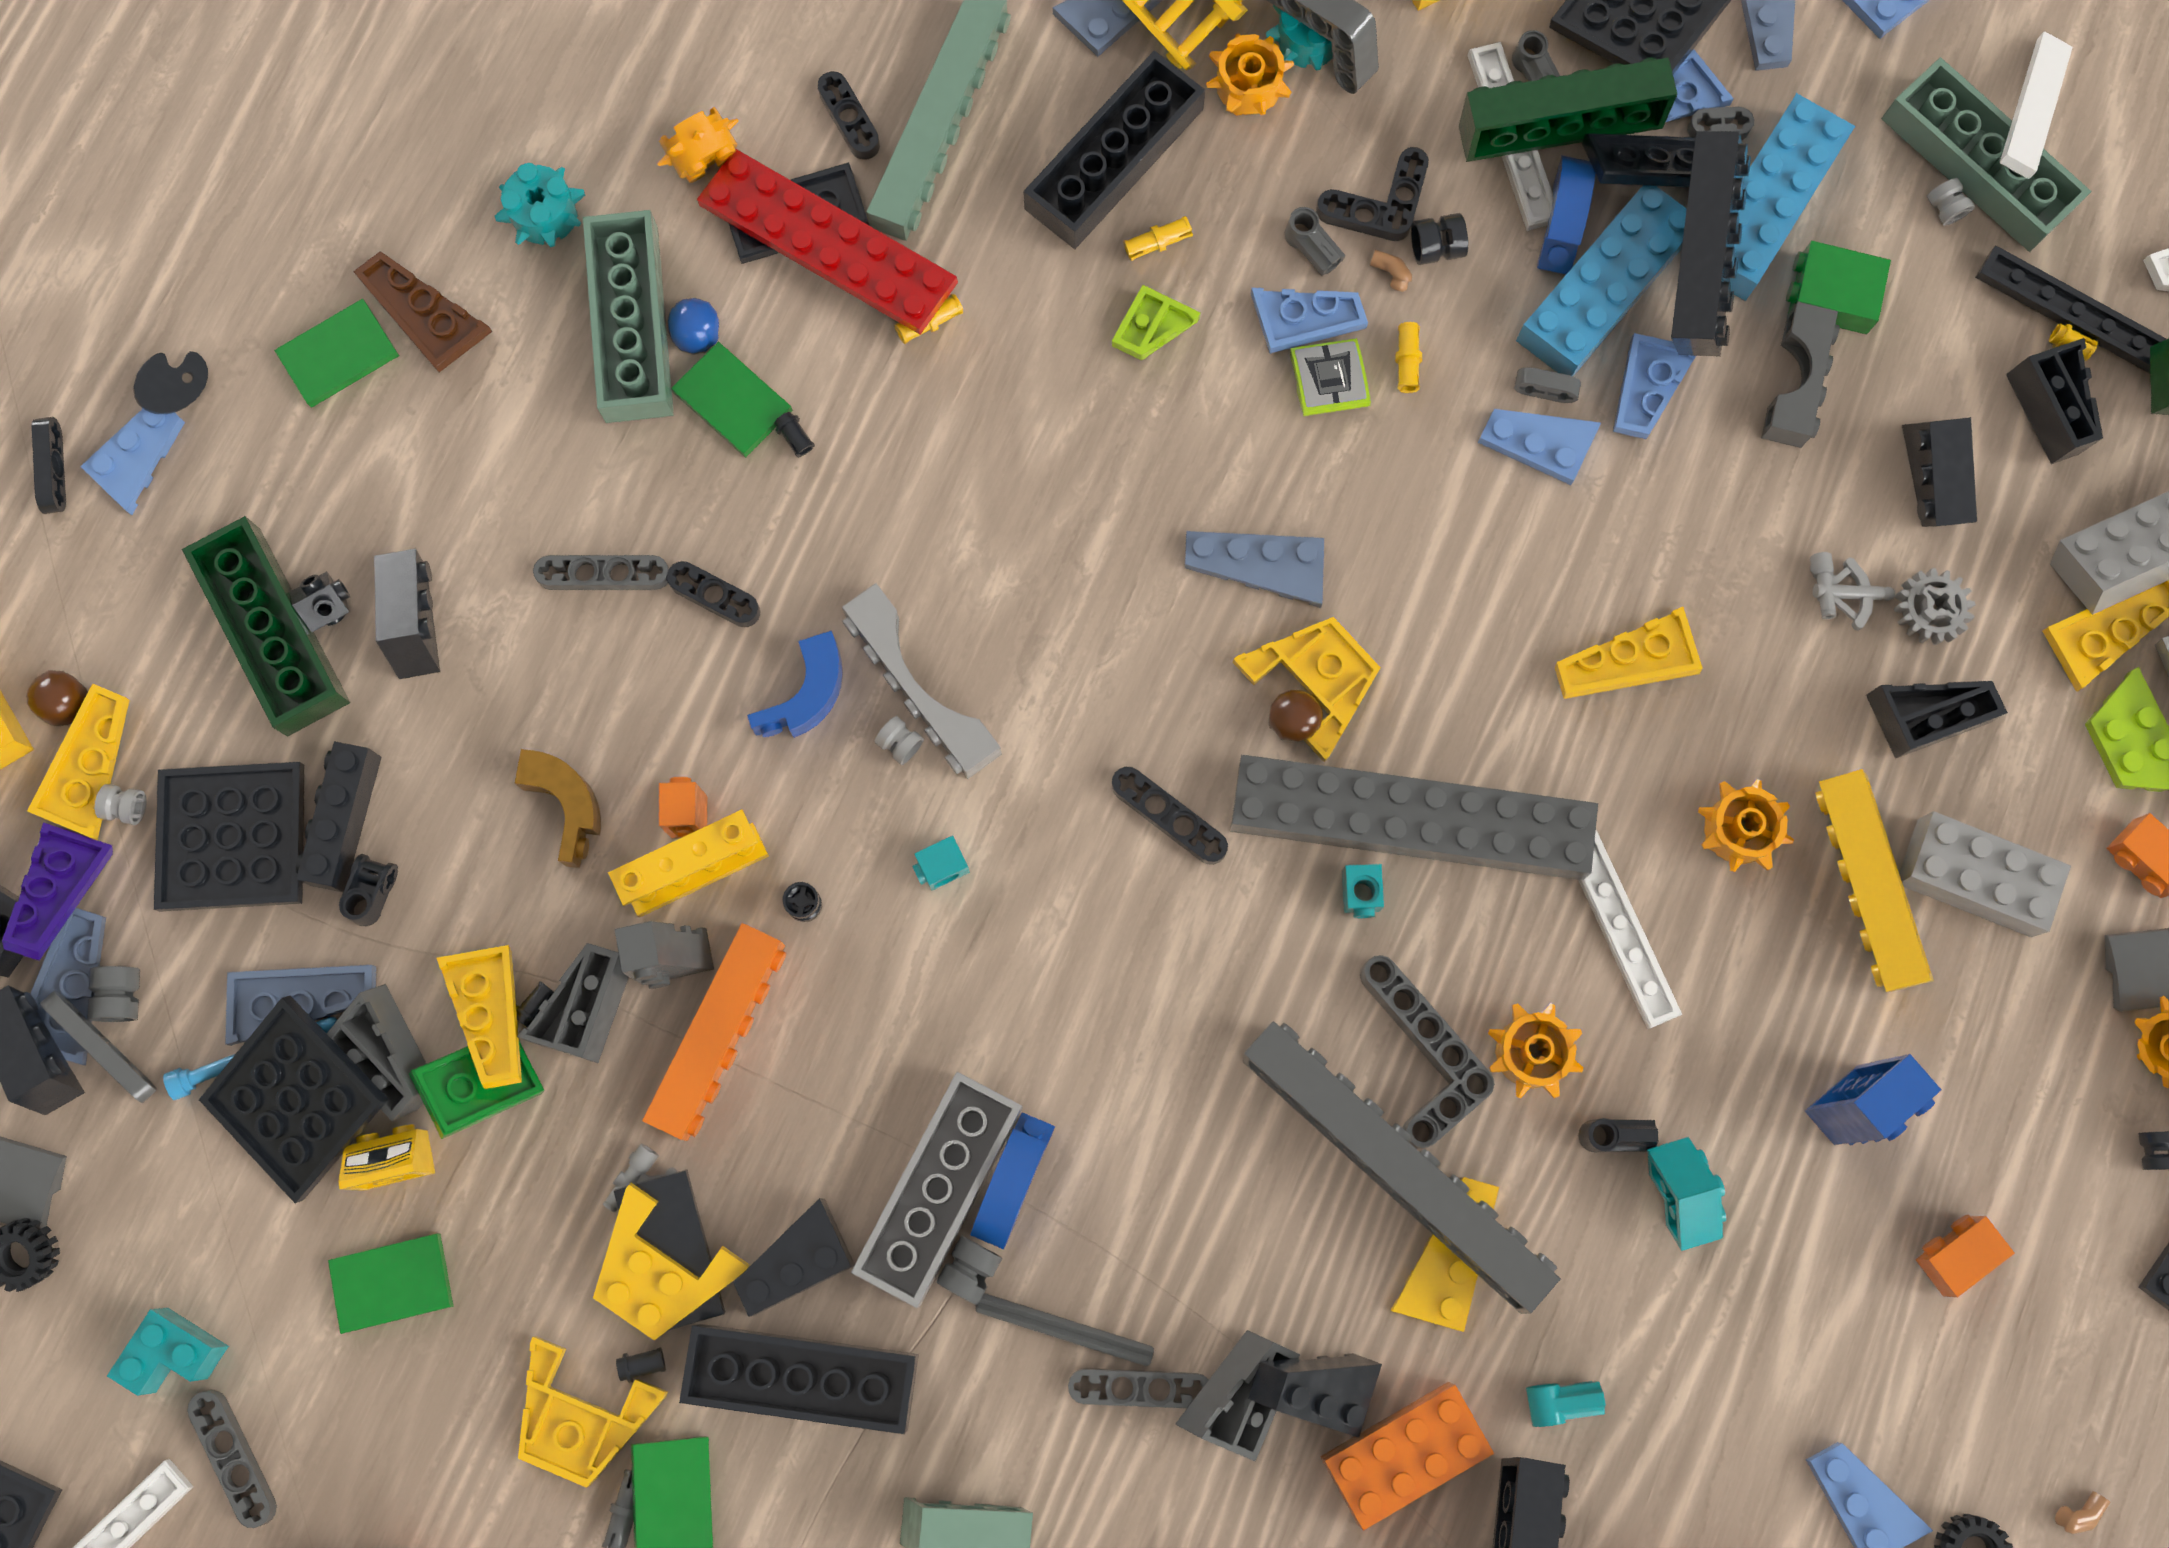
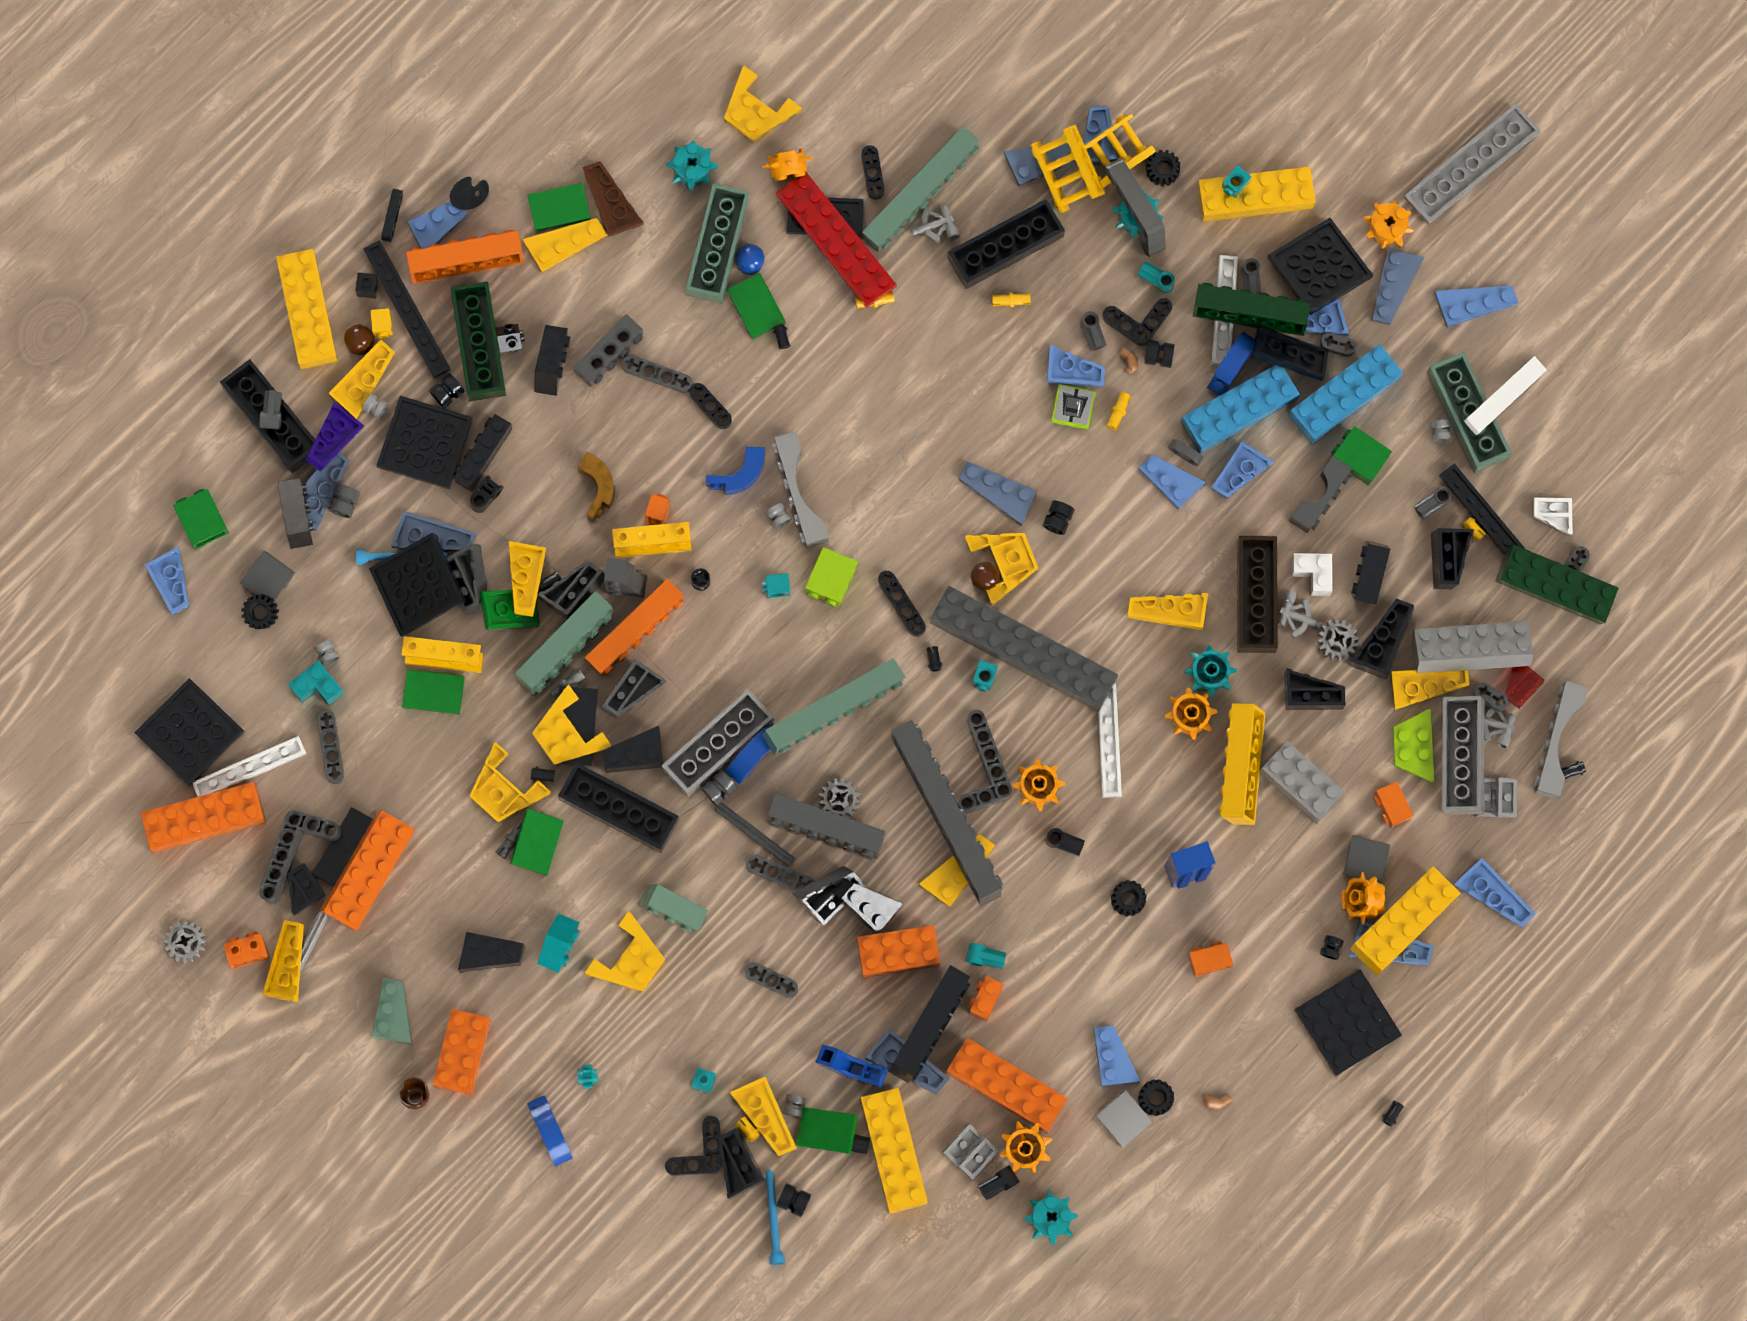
camera: 15 degrees right, 0 degrees up
(39, 599) = (366, 285): none -> black brick
(86, 655) = (381, 323): none -> yellow brick
(98, 1046) = (329, 524): dark grey beam -> none
(125, 616) = (406, 309): none -> black plate
(169, 1284) = (327, 652): none -> light grey wheel
(193, 490) = (465, 256): none -> orange brick
(238, 732) = (446, 391): none -> black wheel
(362, 411) = (562, 243): none -> yellow wing
(377, 1213) = (442, 654): none -> yellow fence
(386, 1159) = (453, 630): yellow slope -> none
(499, 543) = (625, 326): none -> dark grey brick
(596, 1111) = (565, 644): none -> sand green brick
(613, 93) = (750, 114): none -> yellow wing
(747, 1146) = (632, 688): none -> dark grey wedge
(998, 150) = (945, 220): none -> light grey piece
(1030, 814) = (831, 577): none -> lime brick
(1120, 1047) = (834, 706): none -> sand green brick
(1152, 323) = (990, 344): lime wing -> none
(1191, 1271) = (825, 826): none -> dark grey brick
(1207, 1217) = (848, 792): none -> light grey gear
(1250, 74) = (1094, 238): light orange brick -> none
(1263, 894) = (934, 659): none -> black pin
(1381, 117) = (1155, 275): none -> teal piece
(1381, 569) = (1058, 517): none -> black wheel
(1598, 1484) = (984, 1002): none -> orange brick
(1689, 1193) = (1085, 880): teal brick -> none
(1709, 243) = (1291, 410): black brick -> none
(1753, 720) = (1217, 663): none -> teal brick
(1770, 578) = (1257, 594): none -> dark brown brick
(1793, 1191) = (1120, 906): none -> black tyre
(1853, 500) = (1314, 566): none -> white brick
(1990, 321) = (1432, 503): none -> dark grey piece
(2017, 579) = (1382, 645): none -> black wedge

